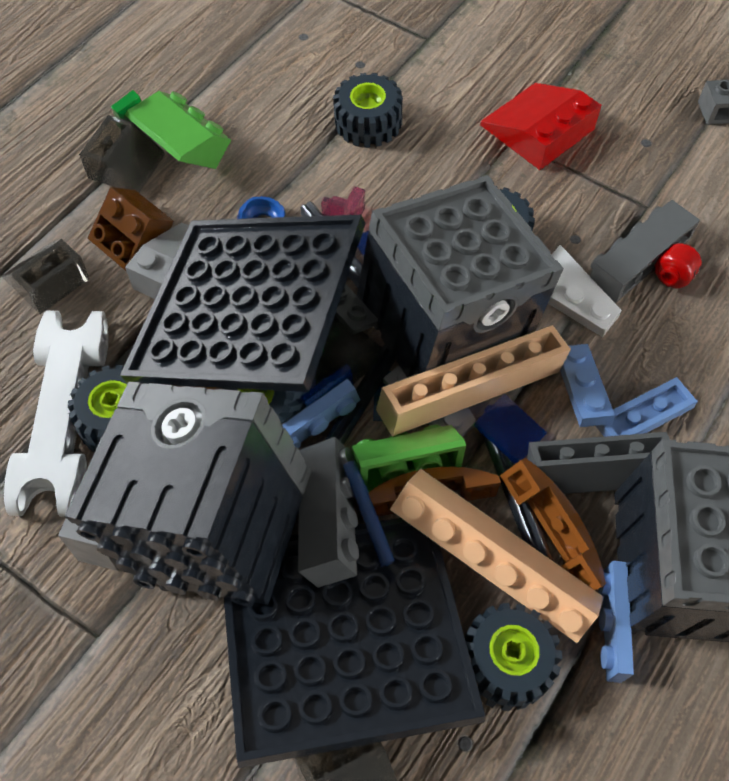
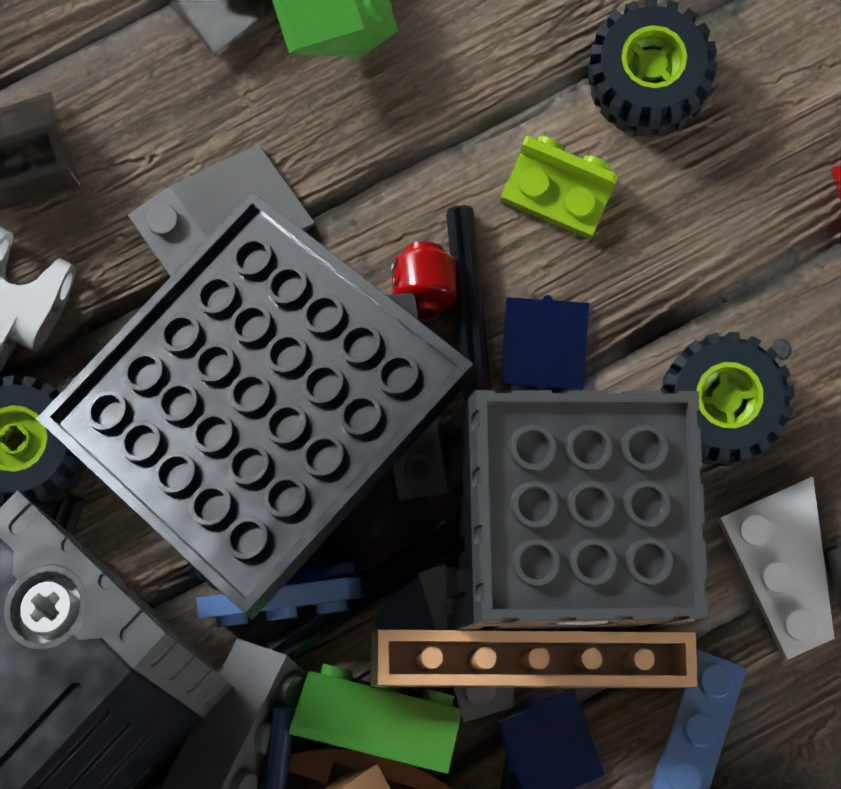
camera: 30 degrees right, 20 degrees up
(127, 224) = (173, 124): reddish brown slope -> none
(261, 206) = (380, 171): blue piece -> none
(339, 206) = (516, 241): clear pink panel -> none
(350, 170) = (559, 186): none -> lime bracket

